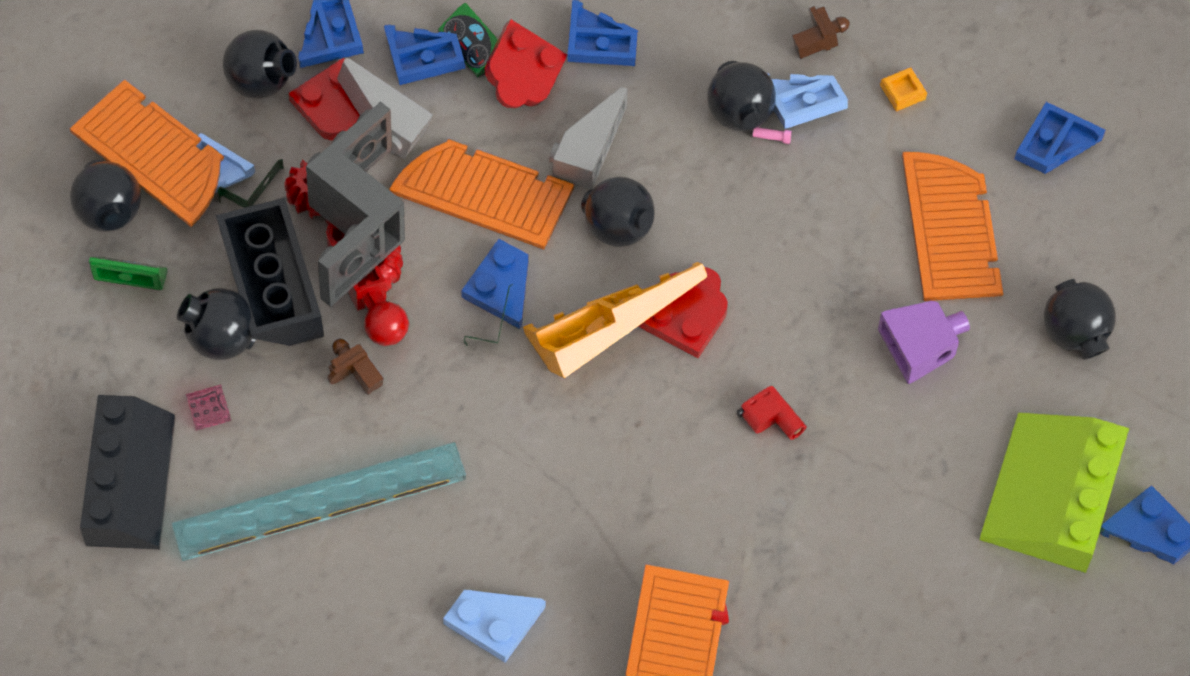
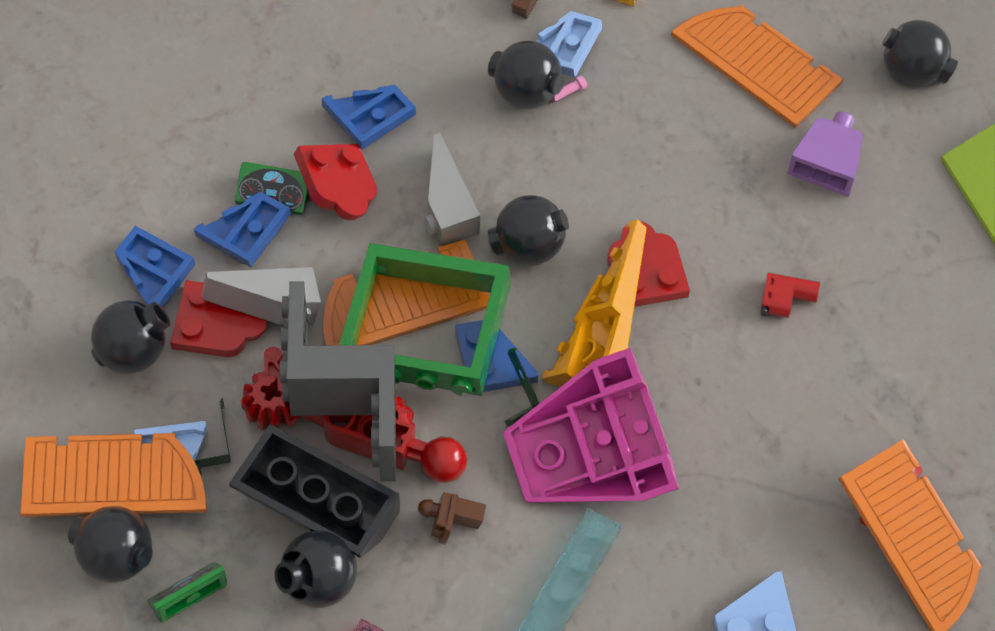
camera: 45 degrees left, 0 degrees up
(505, 259) = (443, 271): none -> green window
(508, 396) = (594, 439): none -> dark pink wedge

